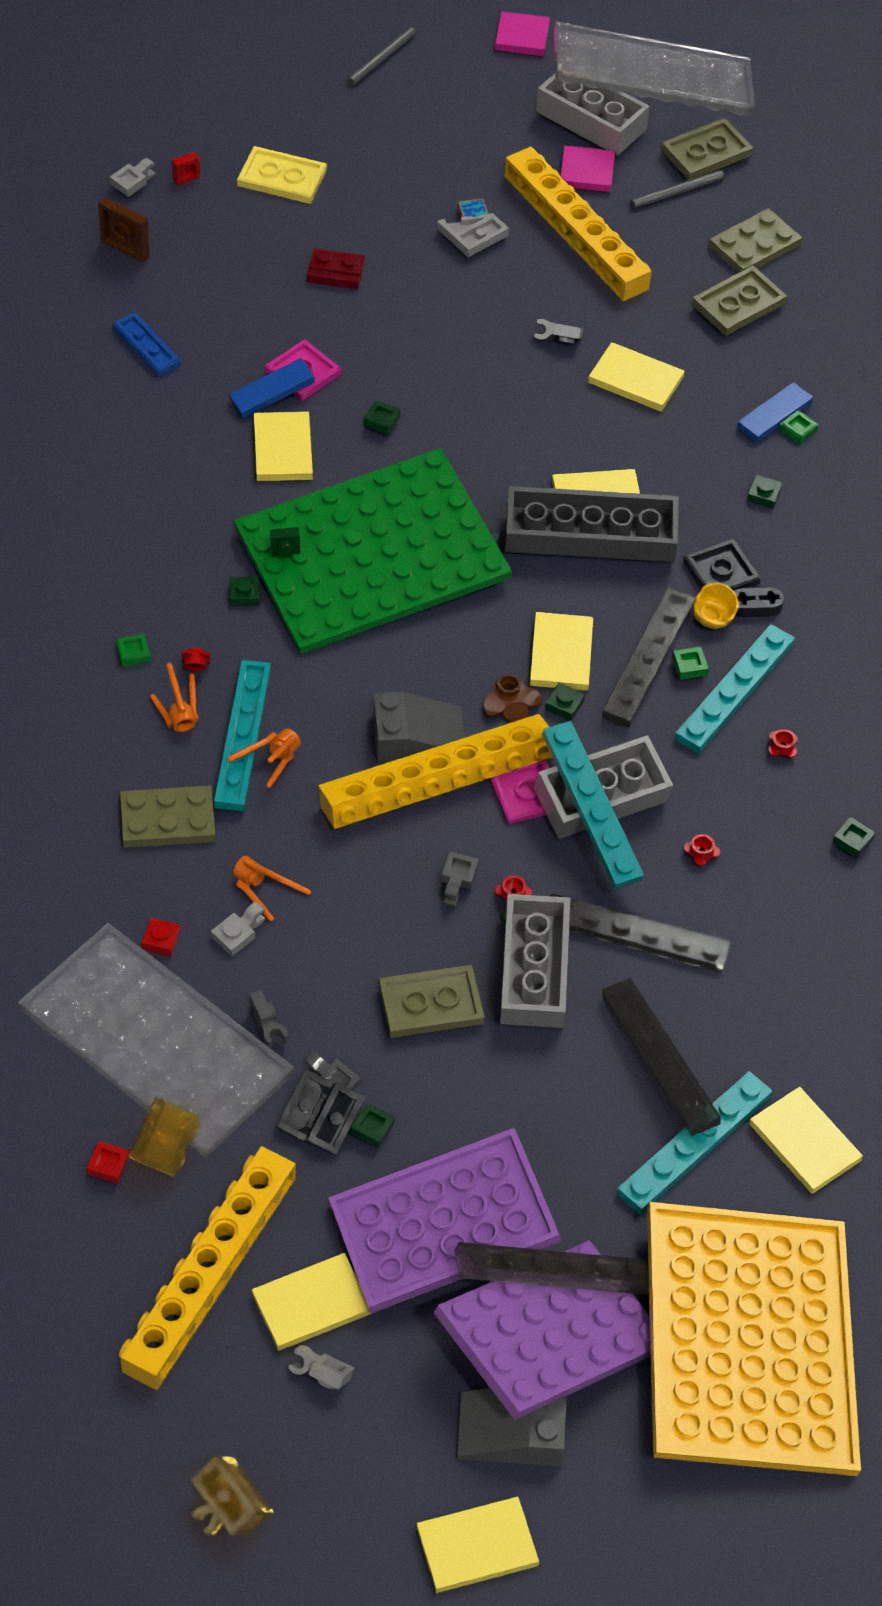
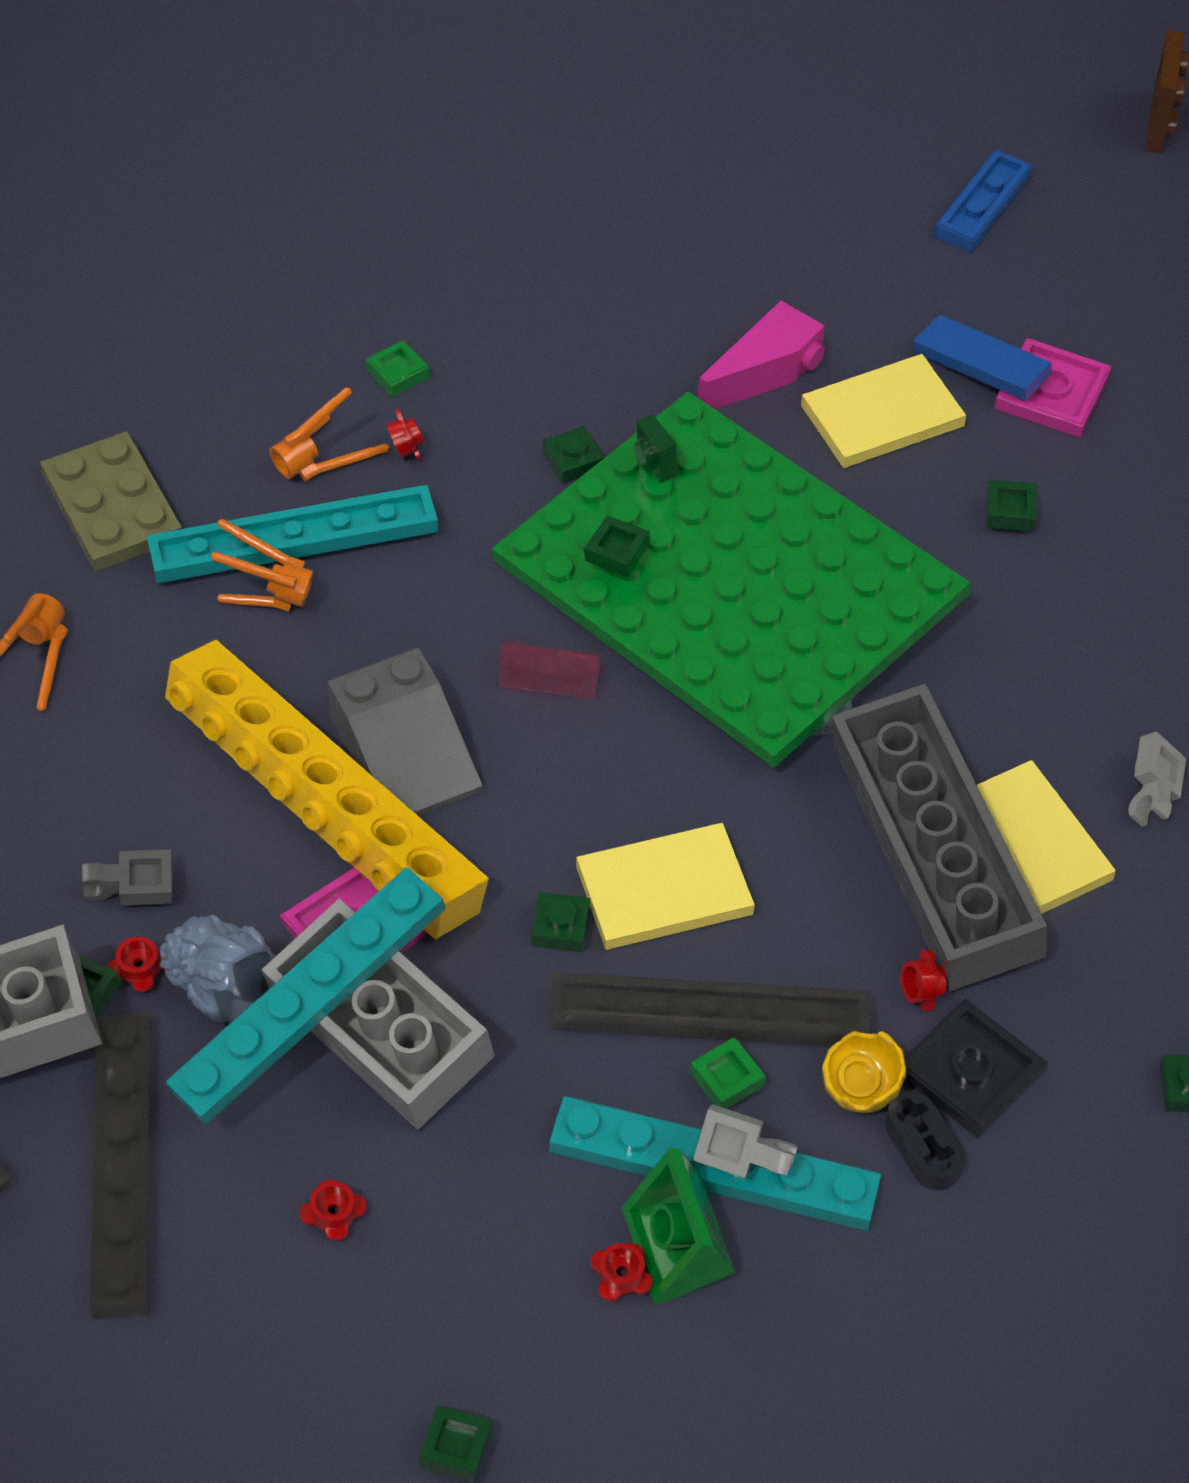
camera: 70 degrees right, 0 degrees up
(218, 472) = (765, 358): none -> dark pink slope
(344, 583) = (617, 546): none -> dark green plate
(399, 649) = (549, 670): none -> clear pink hinge
(511, 703) = (521, 850): reddish brown plate -> none
(538, 848) = (216, 965): none -> sand blue hair
(583, 428) = (1161, 773): none -> light grey plate
(669, 572) = (923, 980): none -> red plate
(743, 666) = (734, 1143): none -> light grey plate
(774, 707) = (677, 1229): none -> green slope

